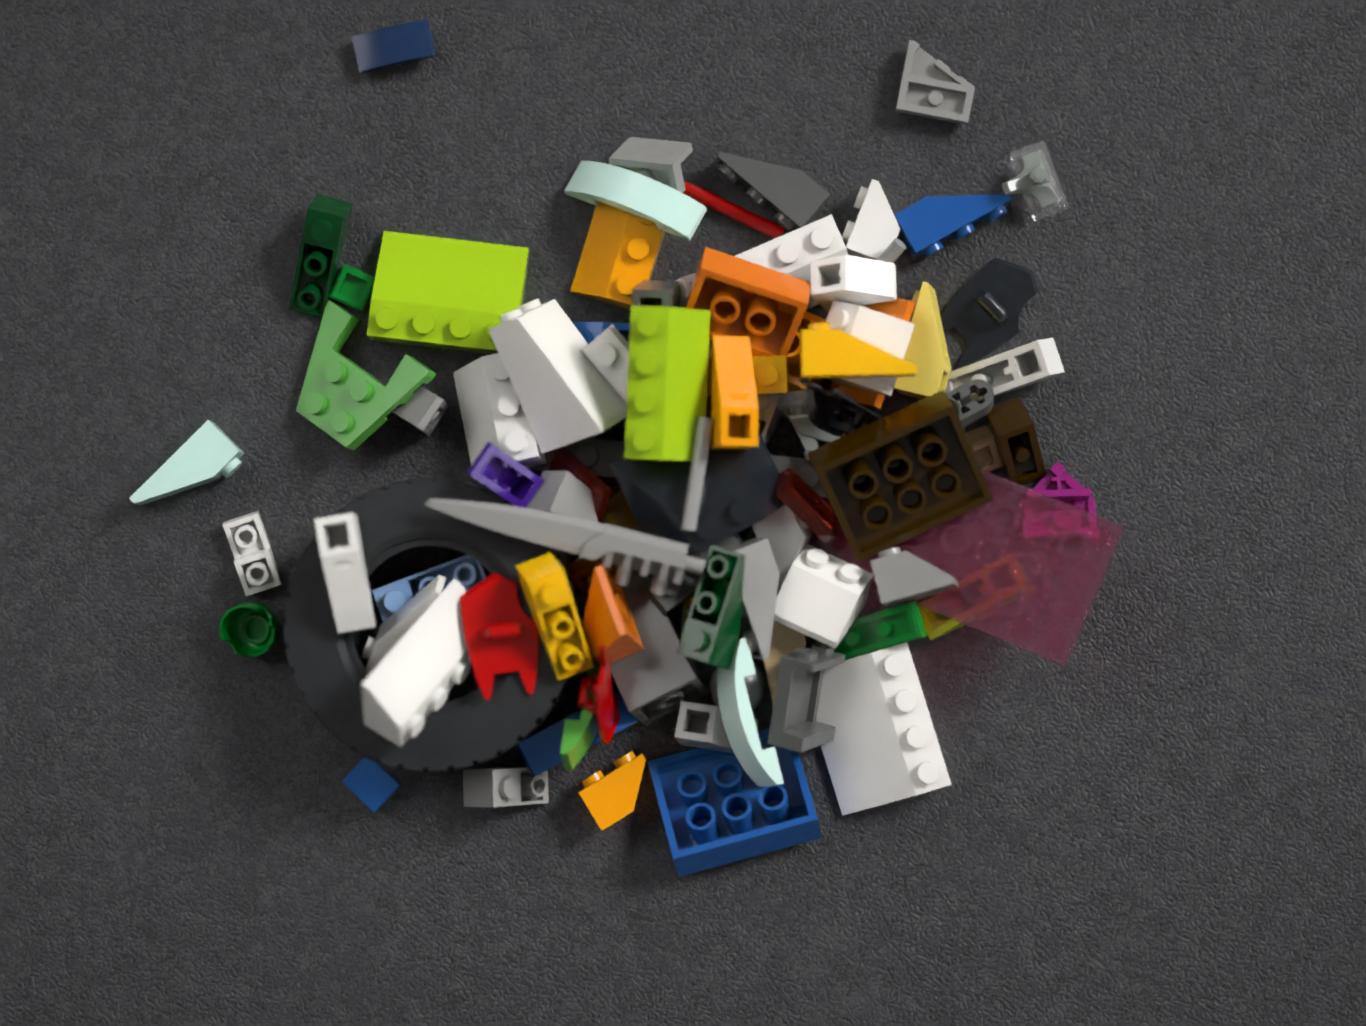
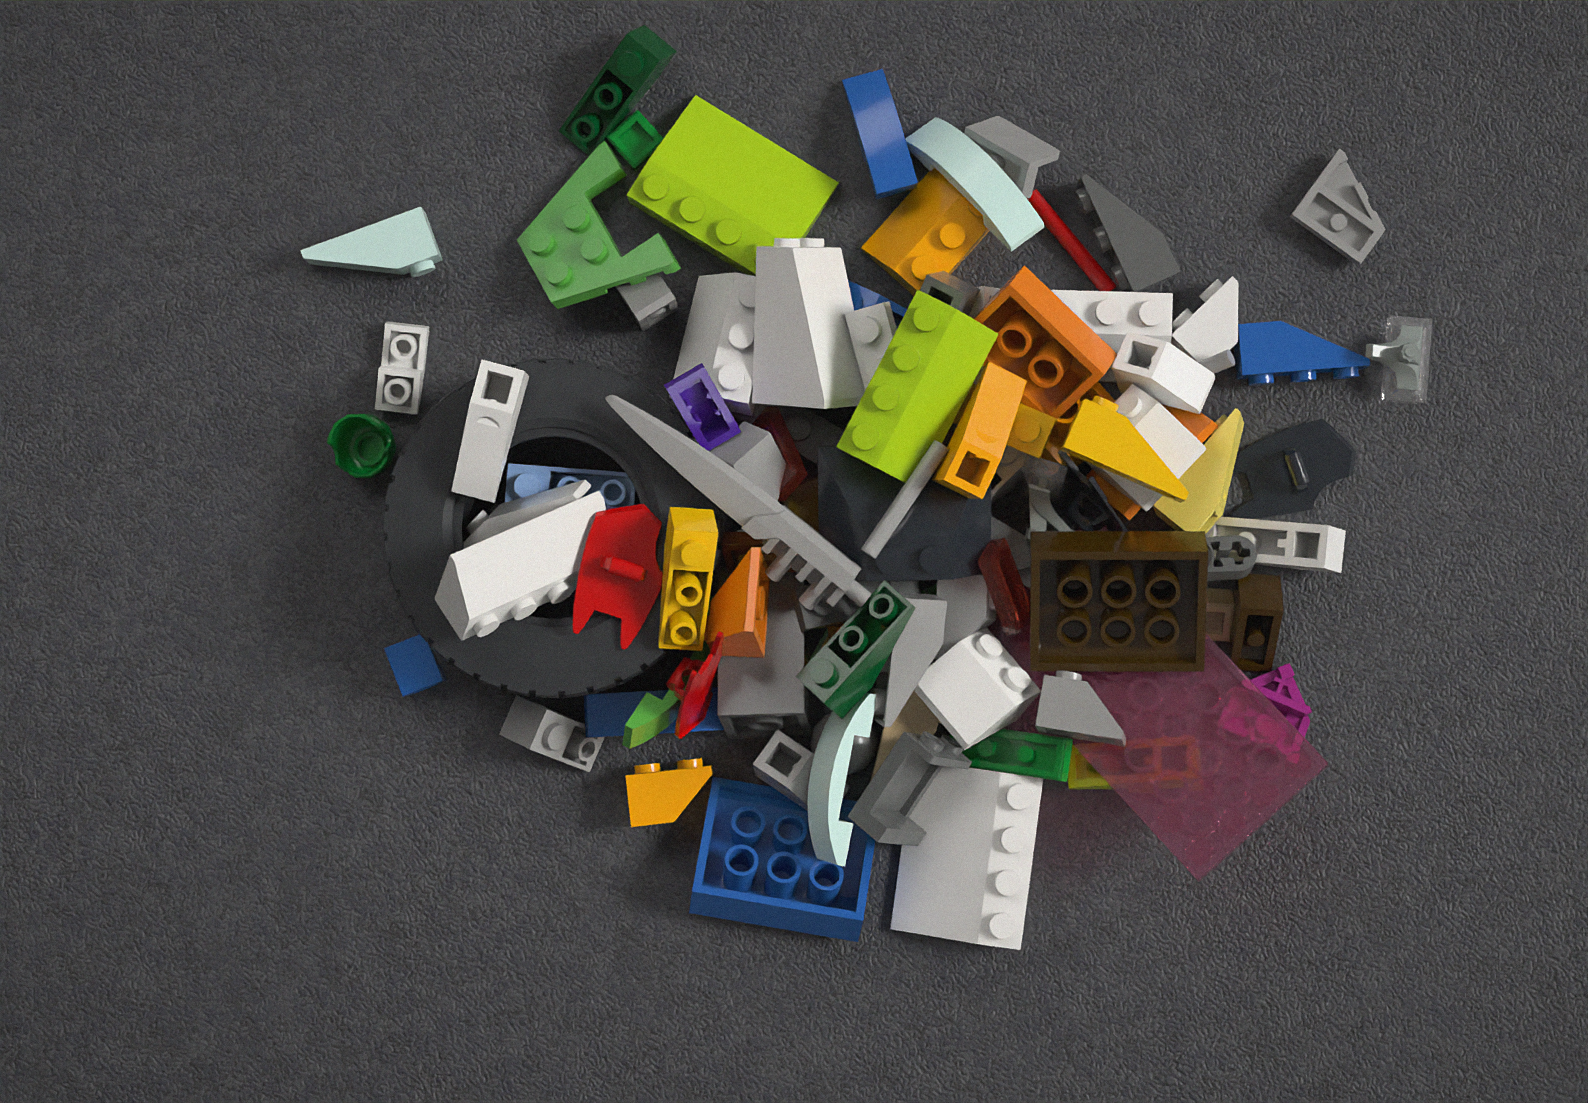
camera: 30 degrees right, 0 degrees up
(543, 194) = (880, 134): none -> blue slope

